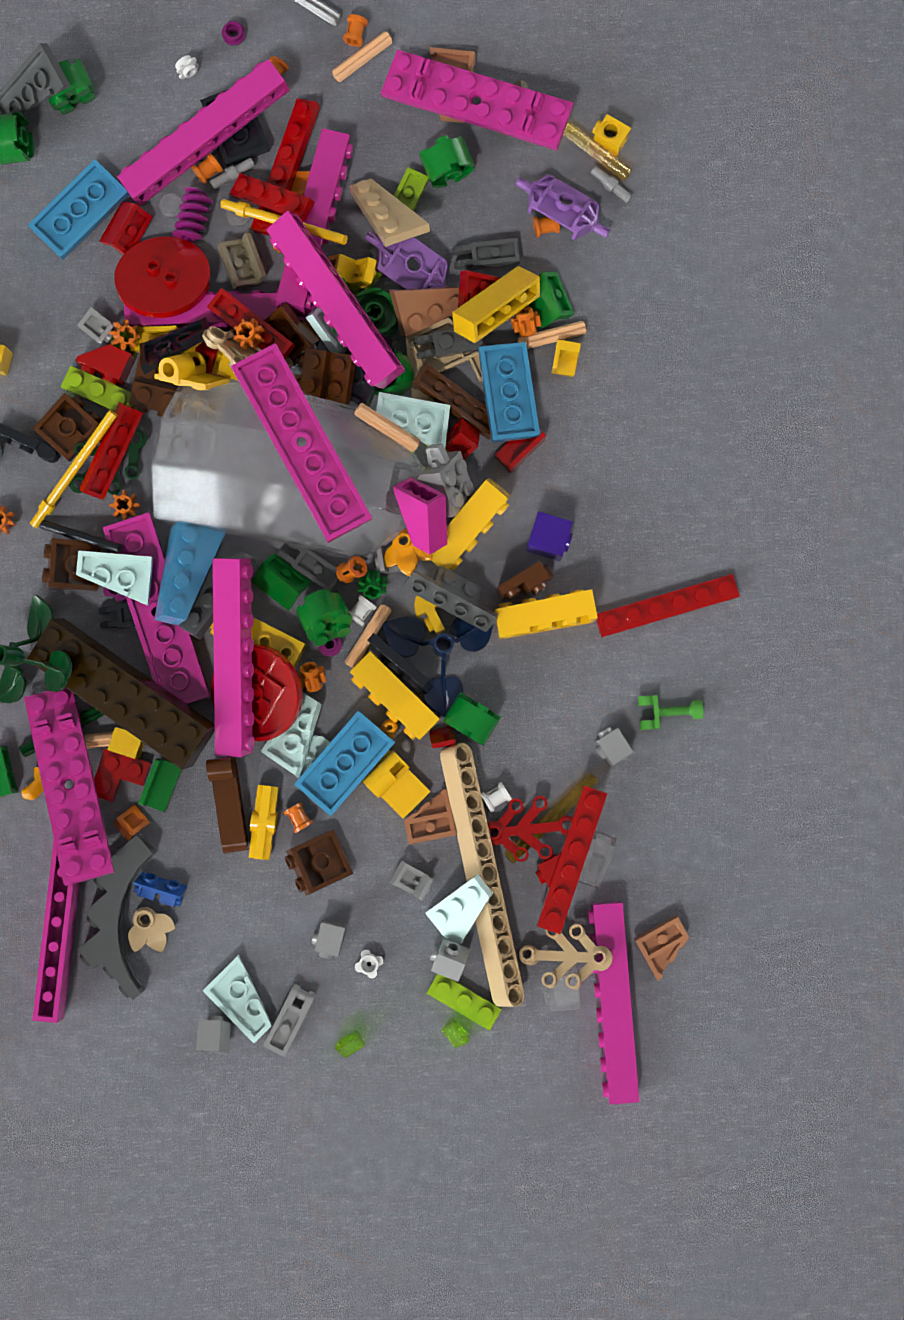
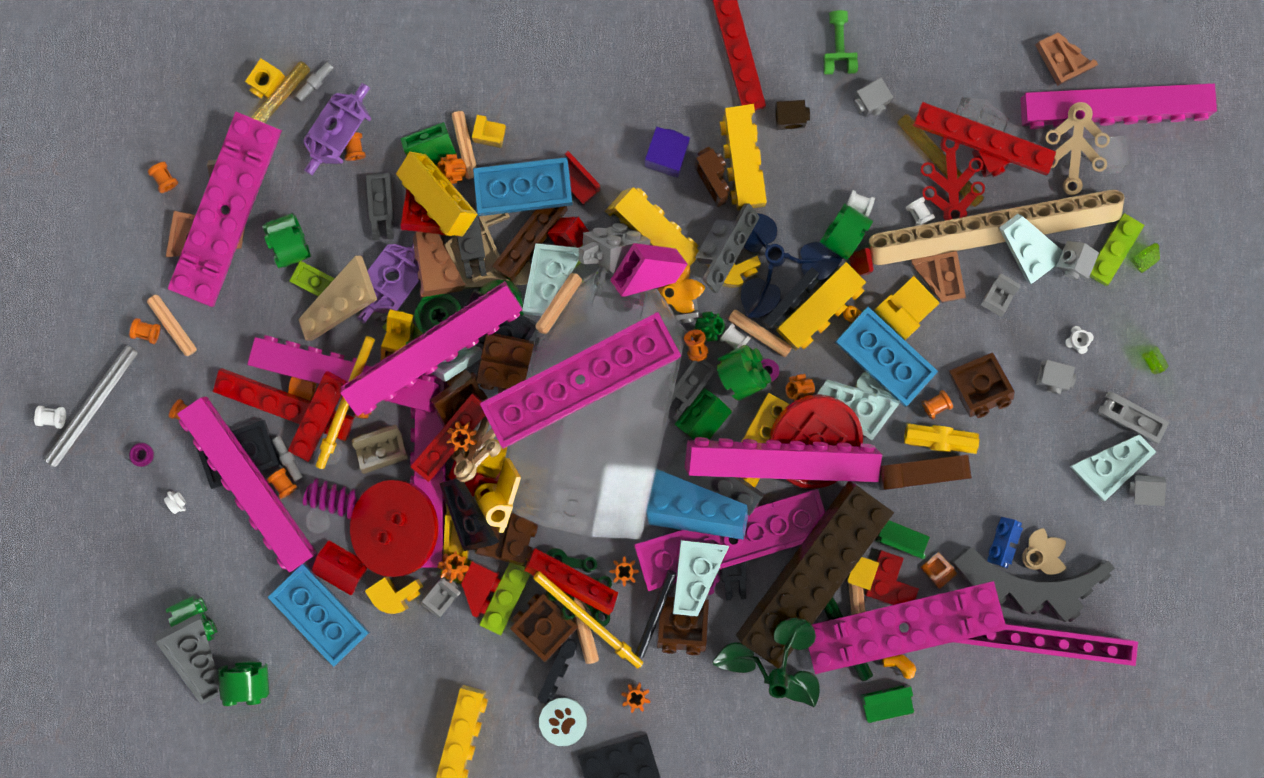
camera: 85 degrees left, 0 degrees up
(57, 471) = (586, 638): none -> light nougat axle
(94, 276) = (389, 599): none -> yellow brick
(503, 735) = (861, 203): none -> white bush
(509, 40) = (162, 177): none -> orange bush
(593, 663) = (791, 114): none -> dark brown brick

